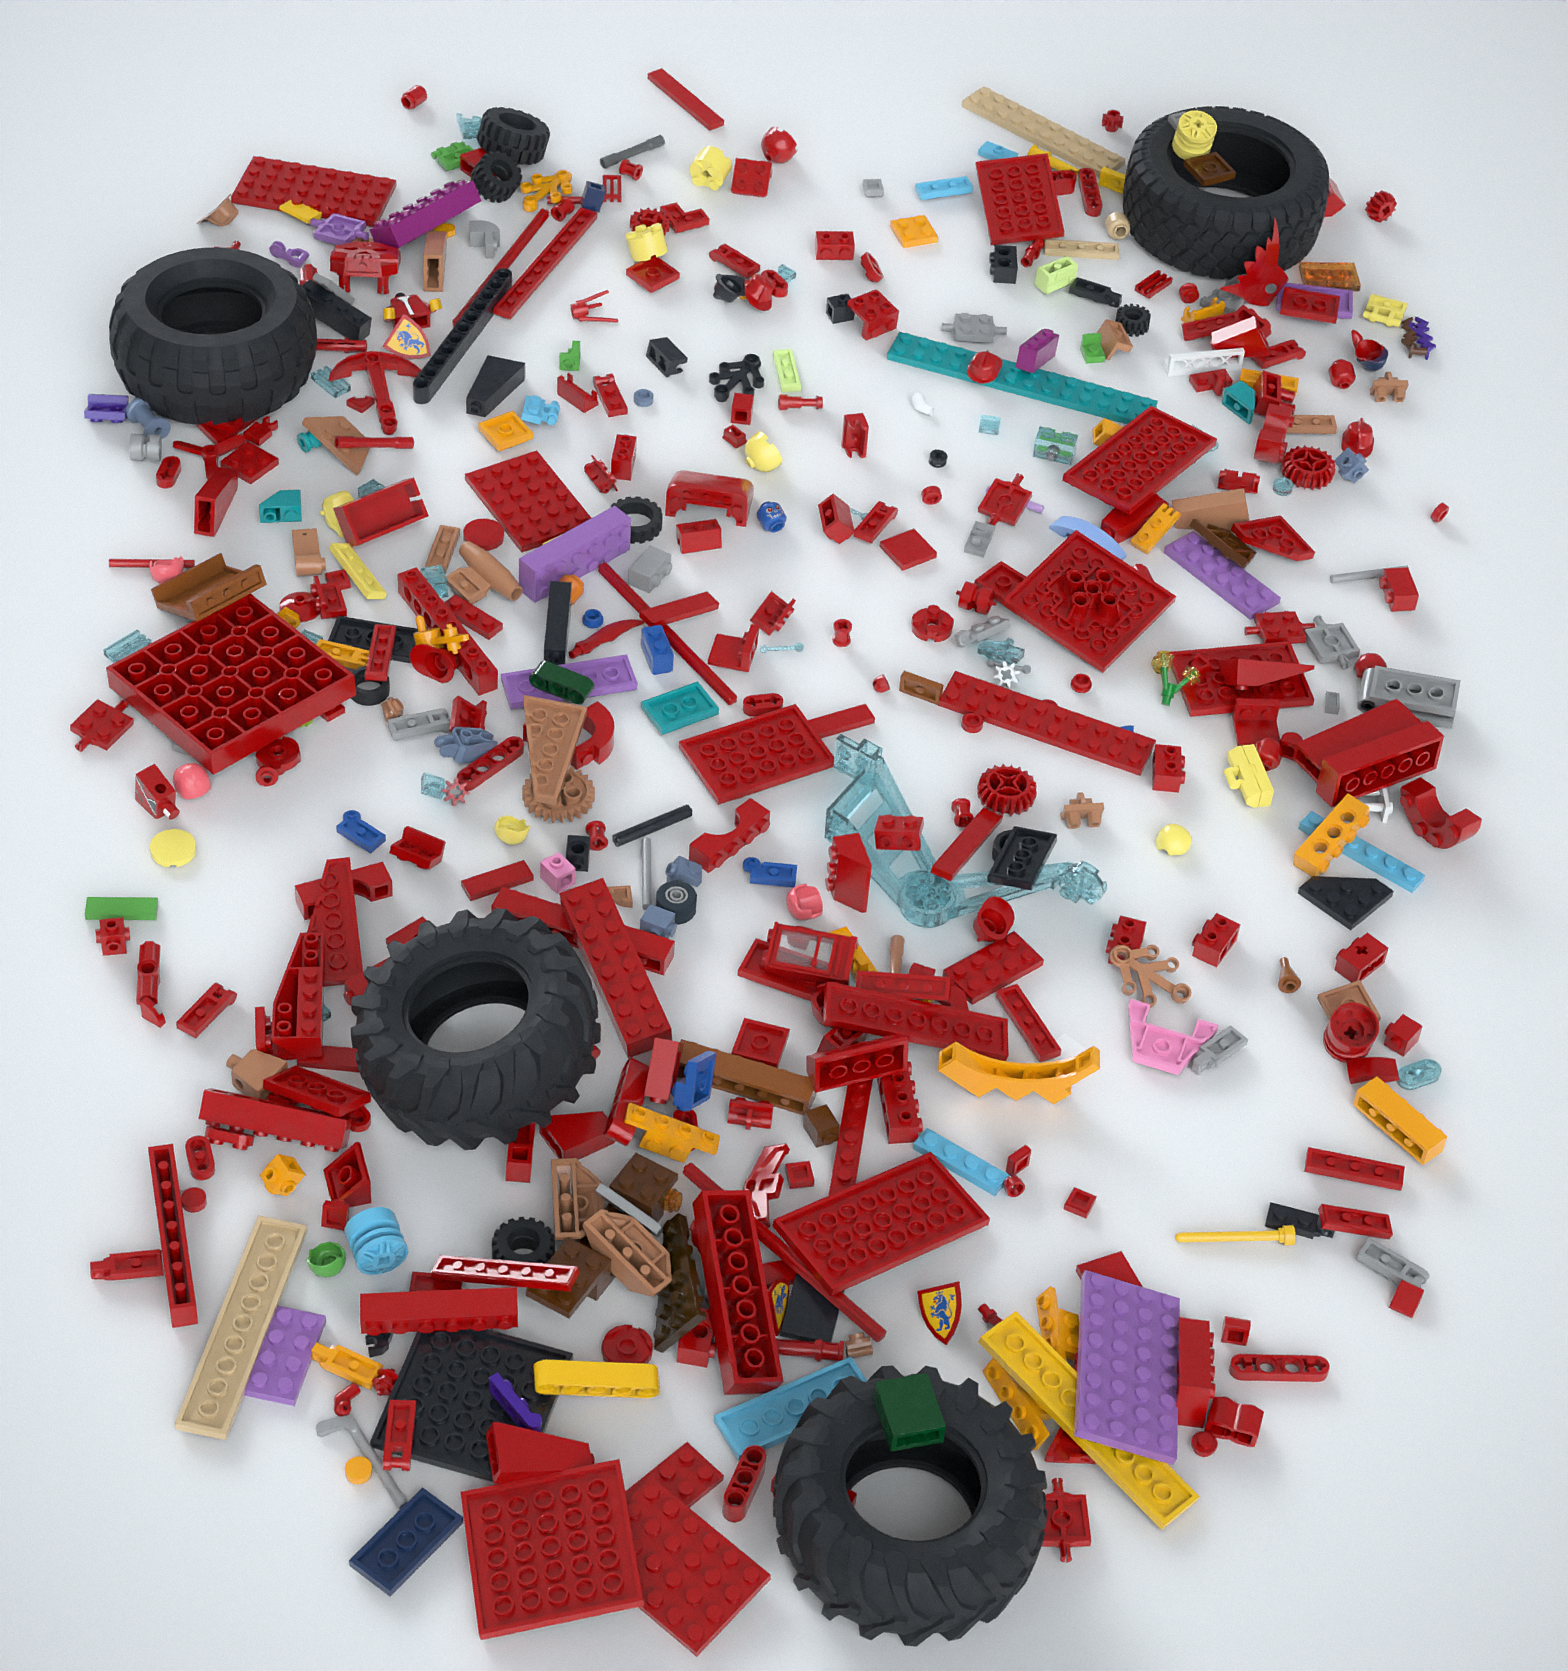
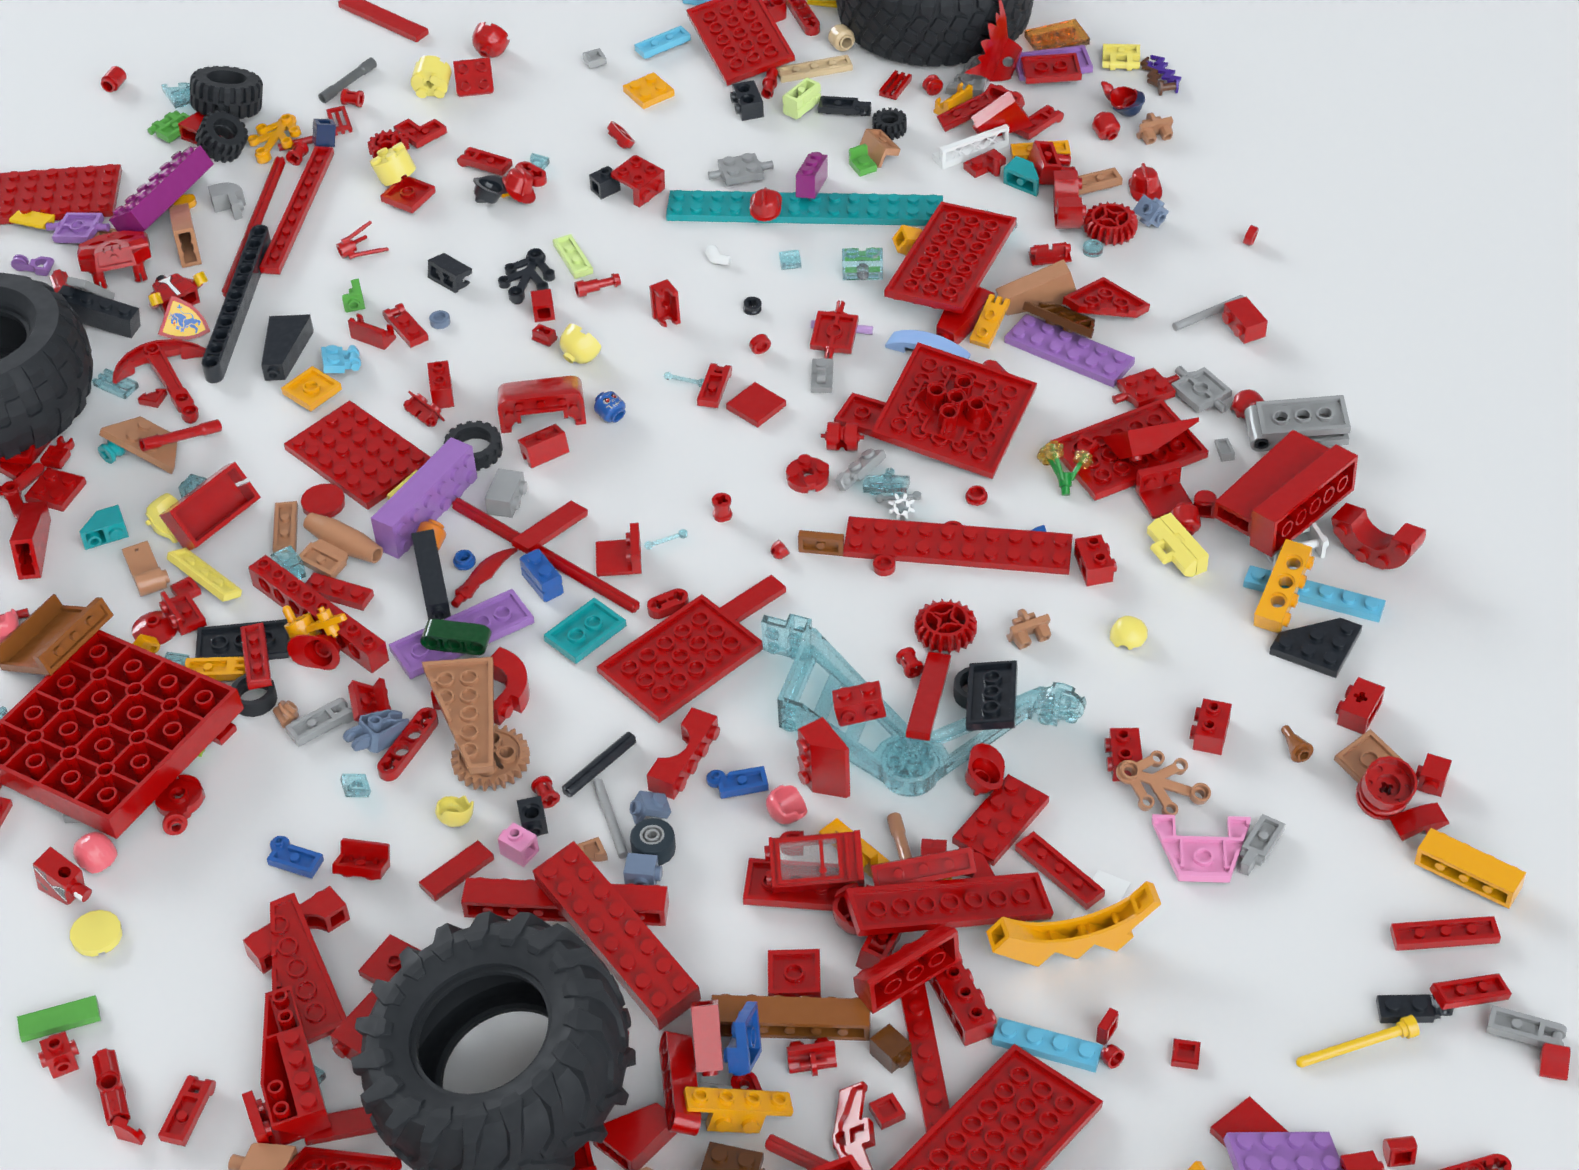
camera: 10 degrees left, 0 degrees up
(342, 345) = (119, 342): red pin -> none
(458, 796) = (388, 789): gear -> none
(772, 612) = (645, 506): red bracket -> none
(834, 245) = (577, 122): red brick -> none
(836, 519) = (675, 392): red brick -> none
(1422, 1072) = (1469, 808): clear light blue plate -> none

